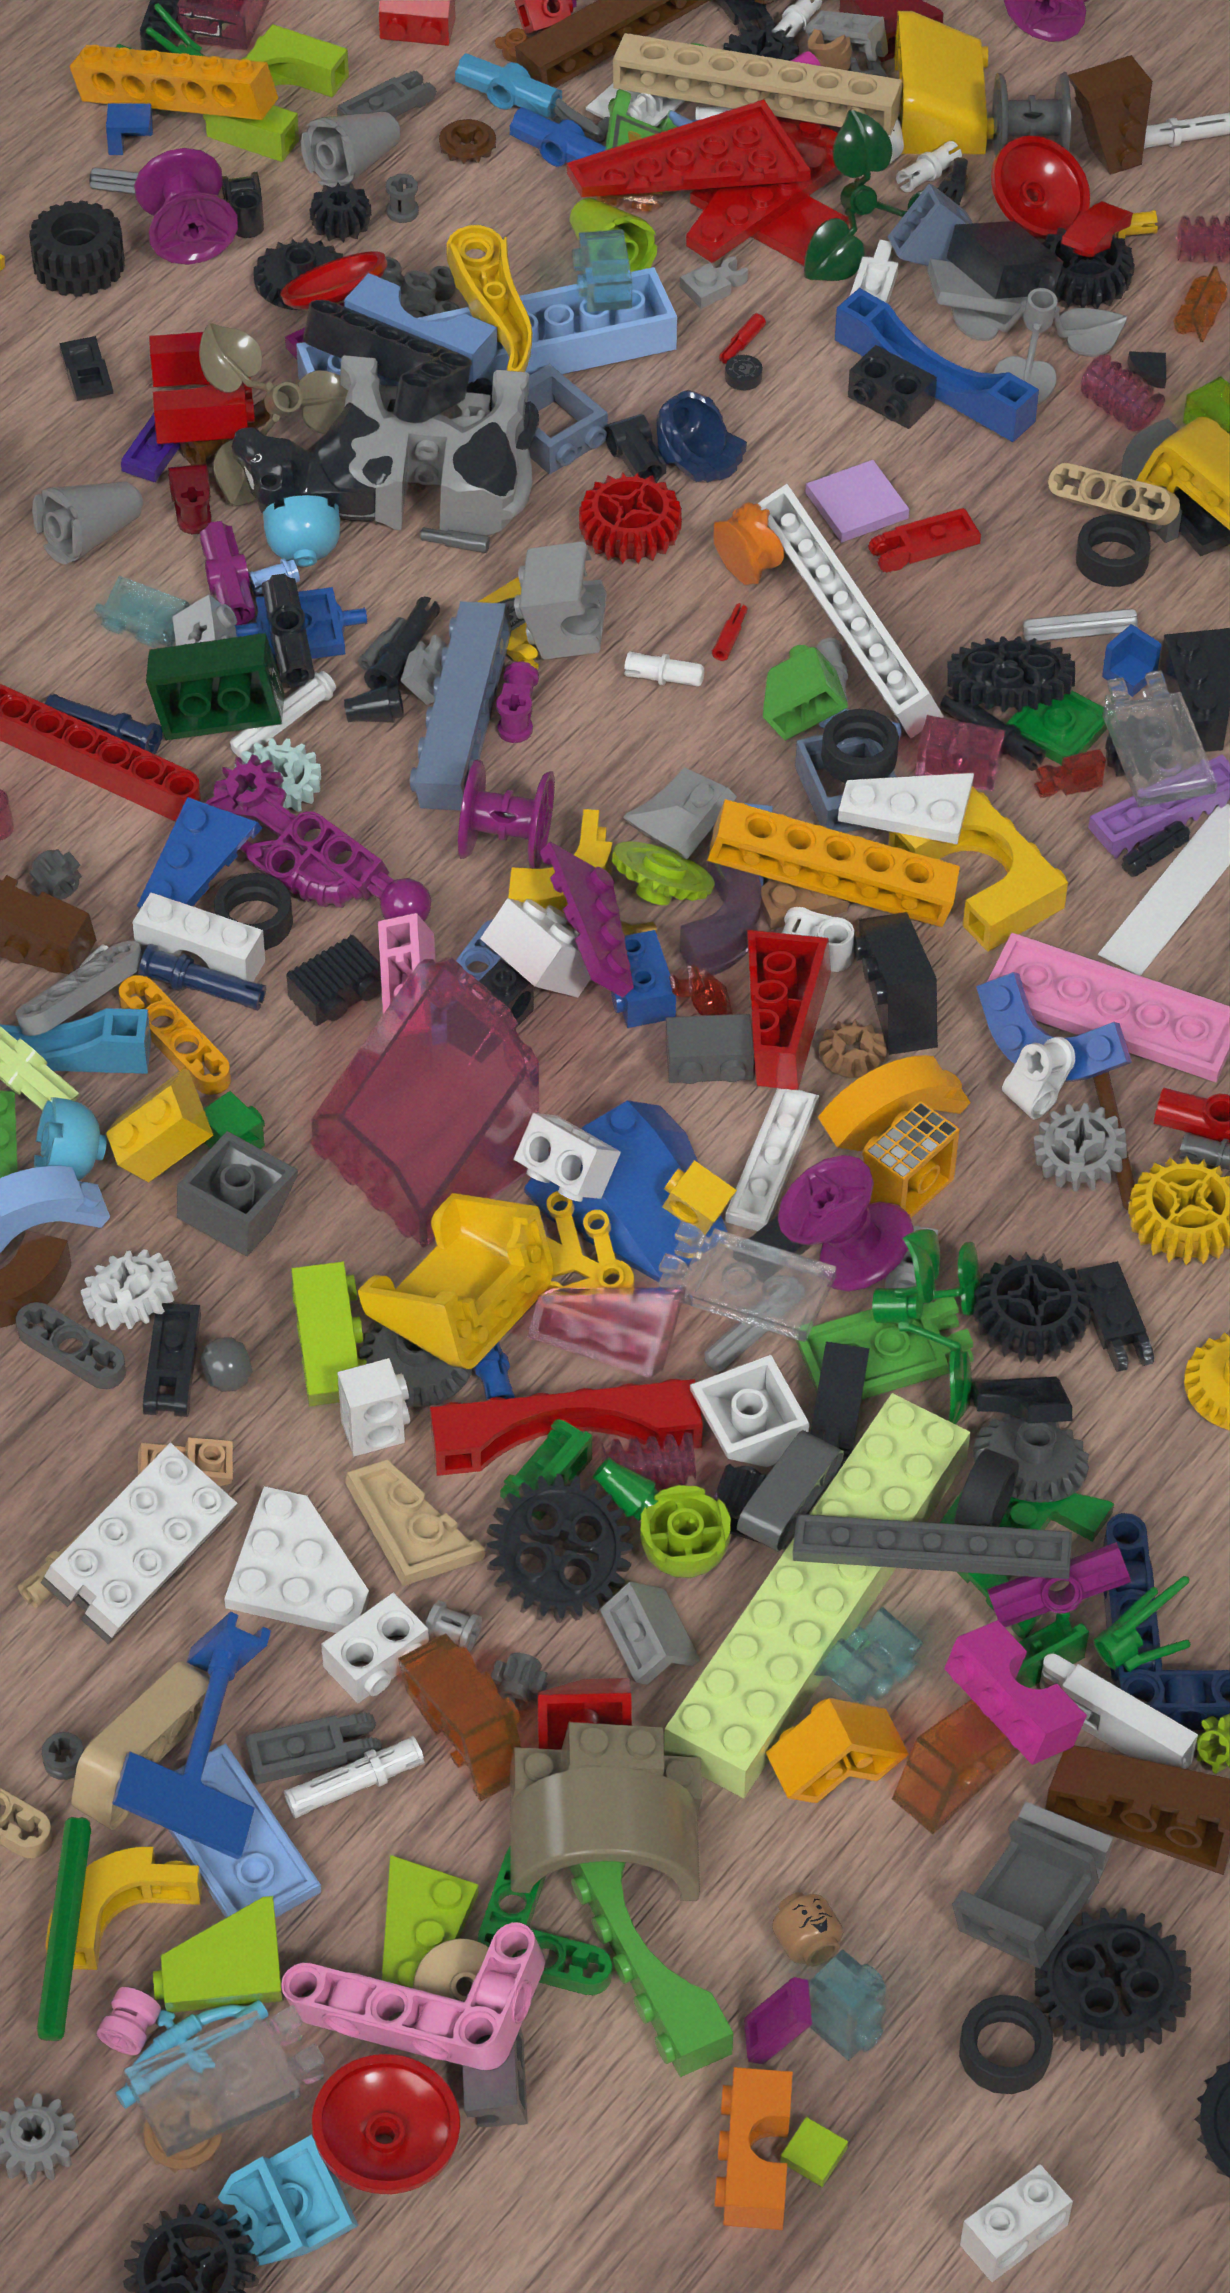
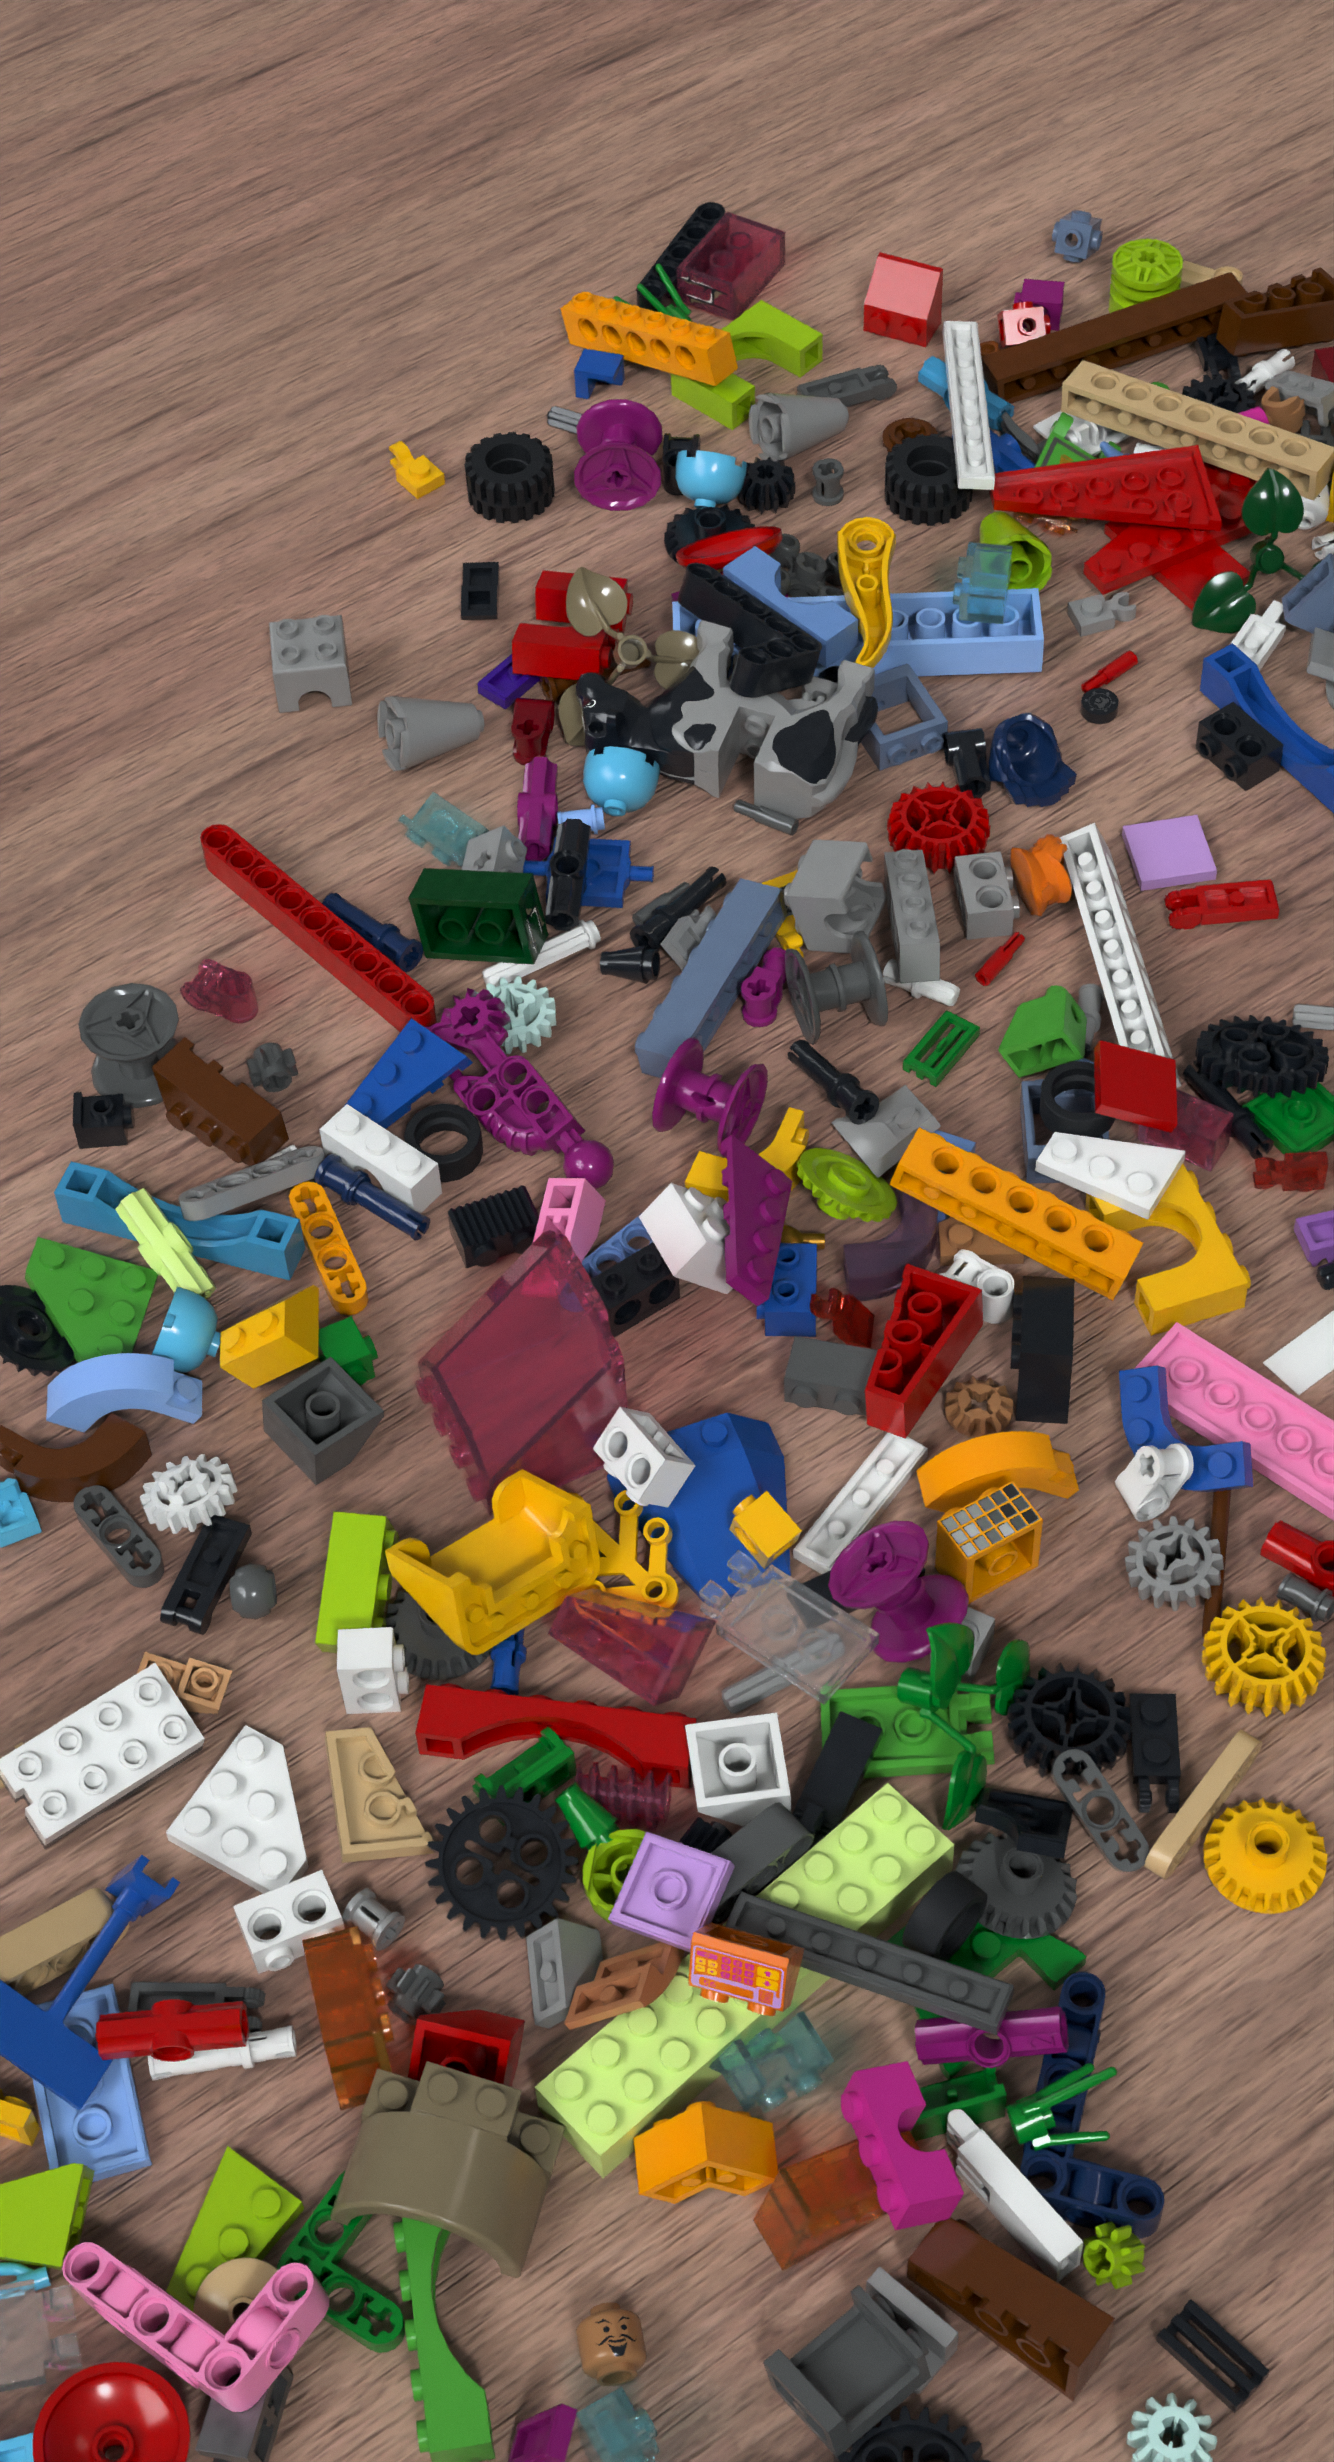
camera: 20 degrees right, 0 degrees up
(287, 213) = (709, 477): none -> medium azure cylinder
(307, 1764) = (172, 2030): none -> red piece
(503, 178) = (924, 481): none -> black tyre
(522, 97) = (968, 406): none -> white tile
(611, 677) = (836, 987): none -> dark grey piece
(626, 782) = (842, 1089): none -> black pin
(639, 606) = (911, 916): none -> light grey brick
(695, 749) = (927, 1069): none -> green tile
(697, 574) = (985, 895): none -> light grey brick
(715, 1620) = (624, 1984): none -> nougat slope
(735, 1529) = (670, 1891): none -> lavender tile
(829, 1575) = (744, 1967): none -> orange slope
(911, 721) = (1135, 1086): none -> red tile
(1067, 1376) = (1111, 1846): none -> dark grey beam
(1174, 1350) = (1203, 1804): none -> tan beam

